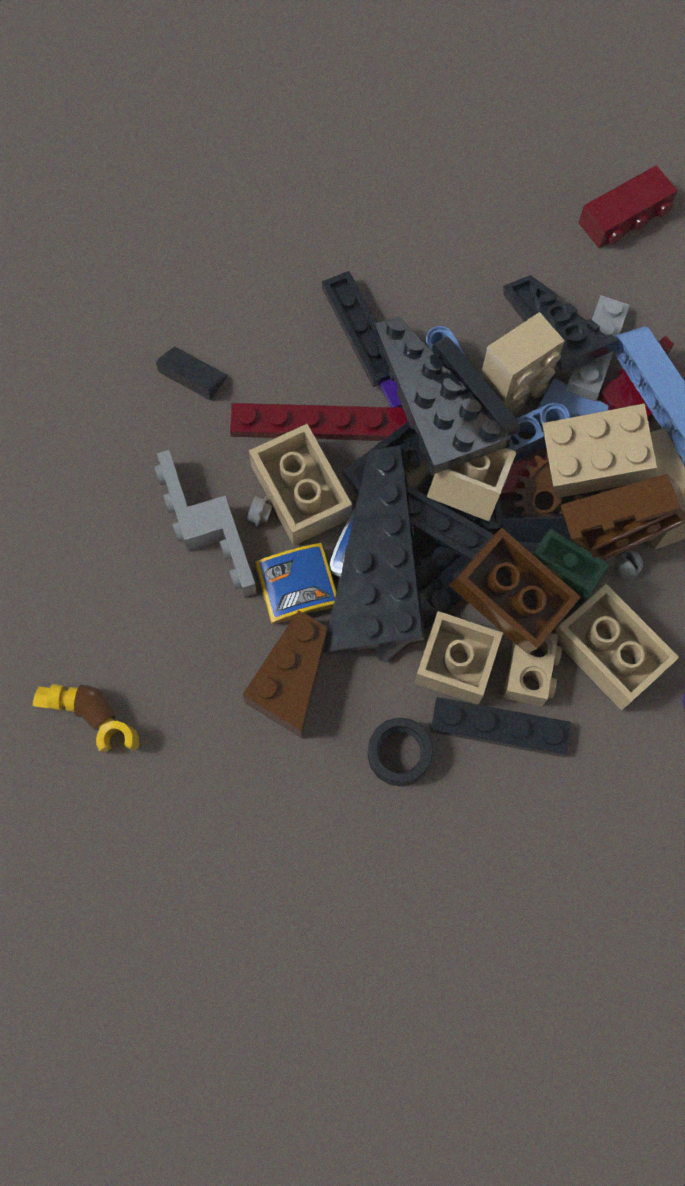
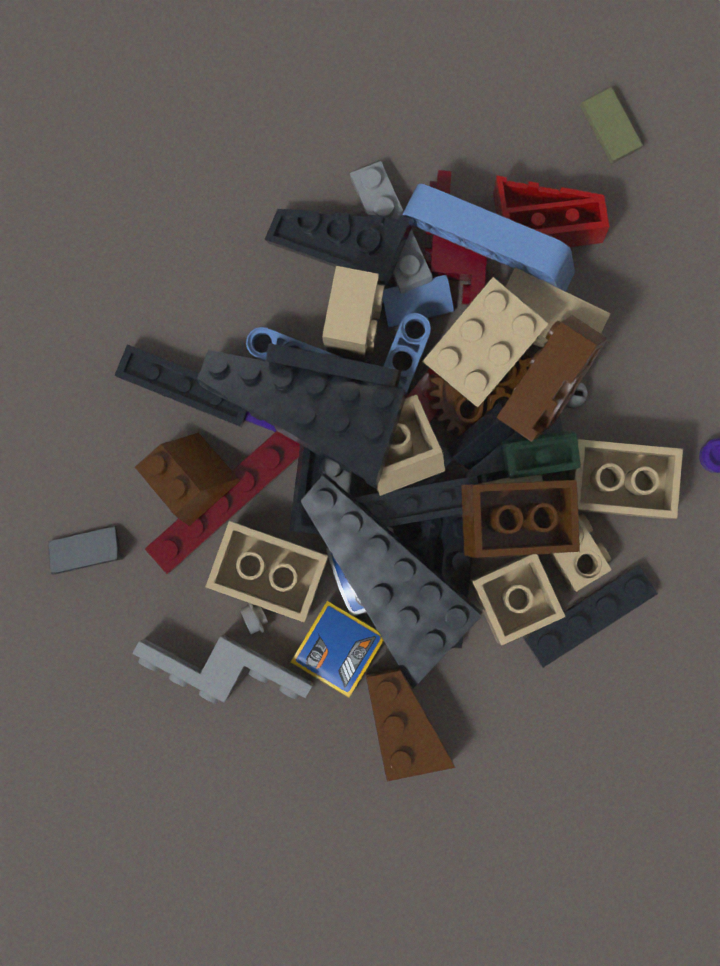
camera: 40 degrees left, 15 degrees up
(92, 707) = (281, 888): piece -> none
(306, 379) = (187, 476): none -> reddish brown slope
(405, 726) = (558, 722): black tyre -> none
(628, 207) = (301, 66): dark red brick -> none

